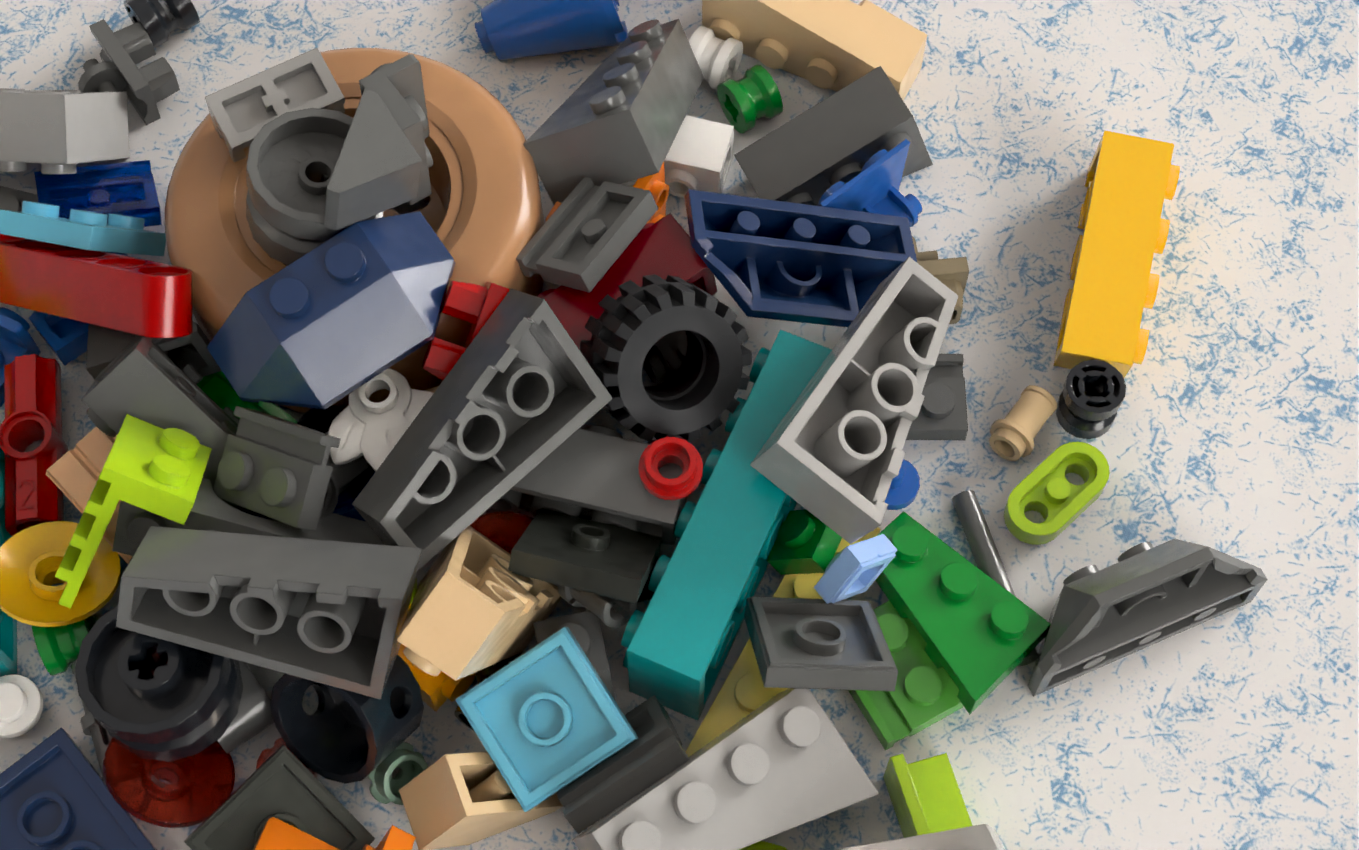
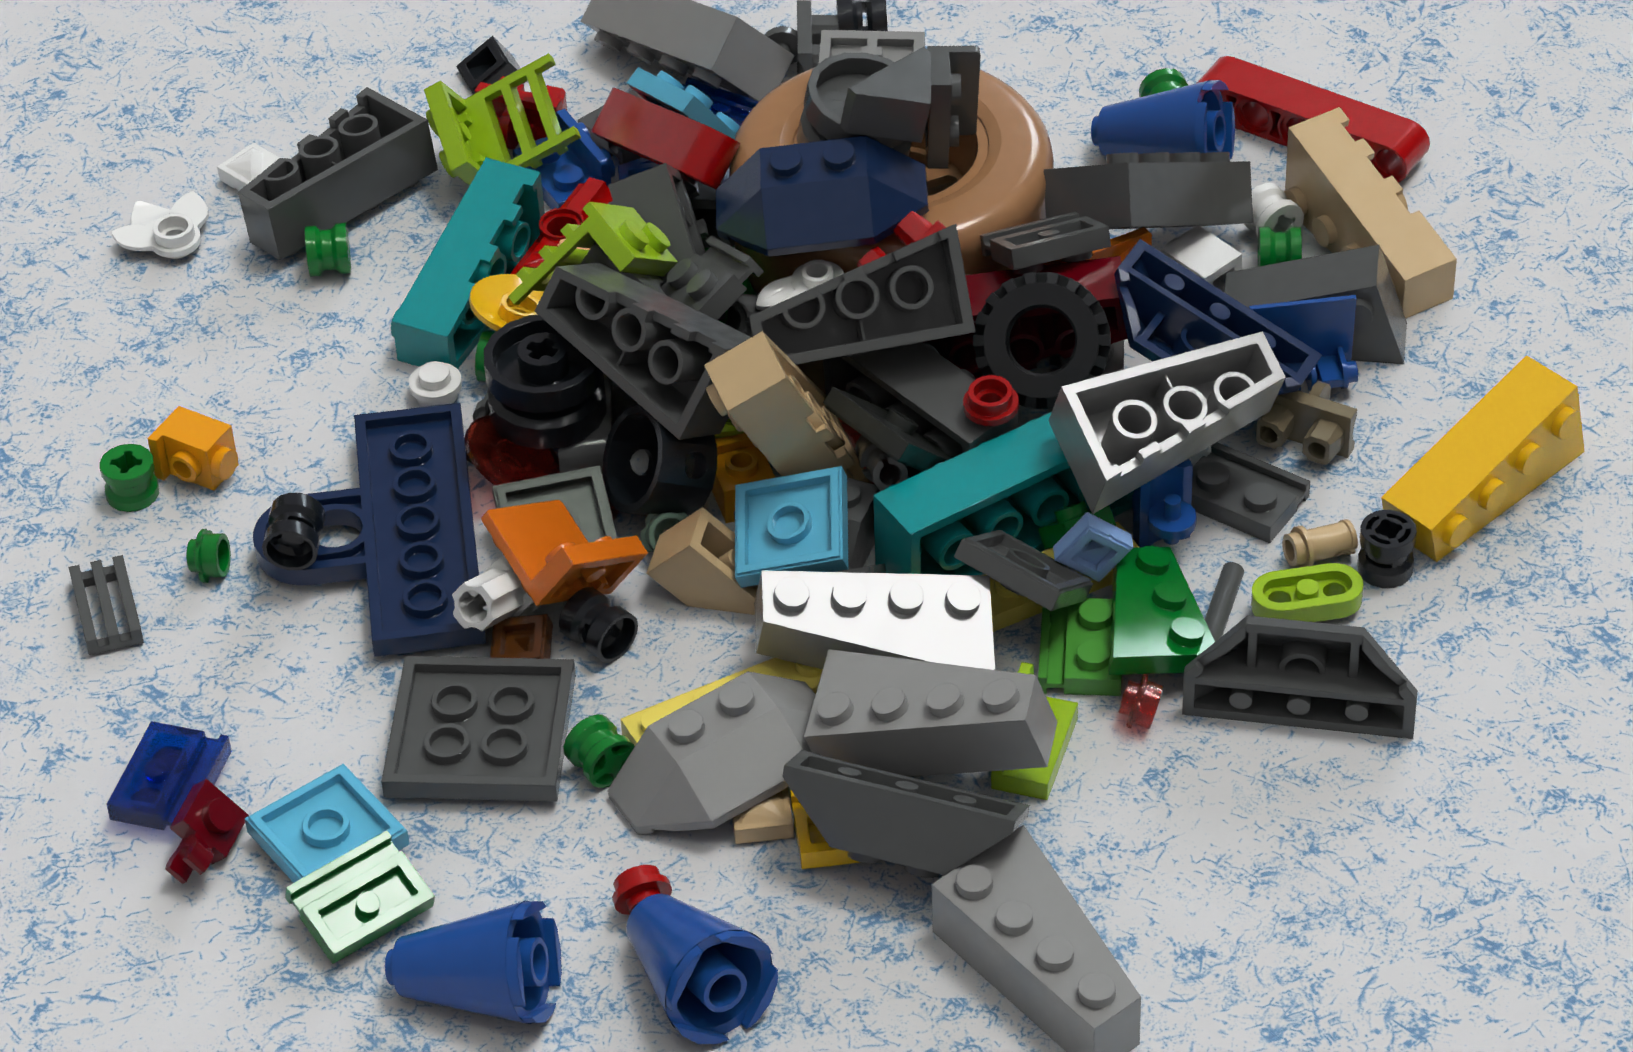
camera: 35 degrees right, 20 degrees down
(1006, 717) = (1140, 702): none -> clear red plate

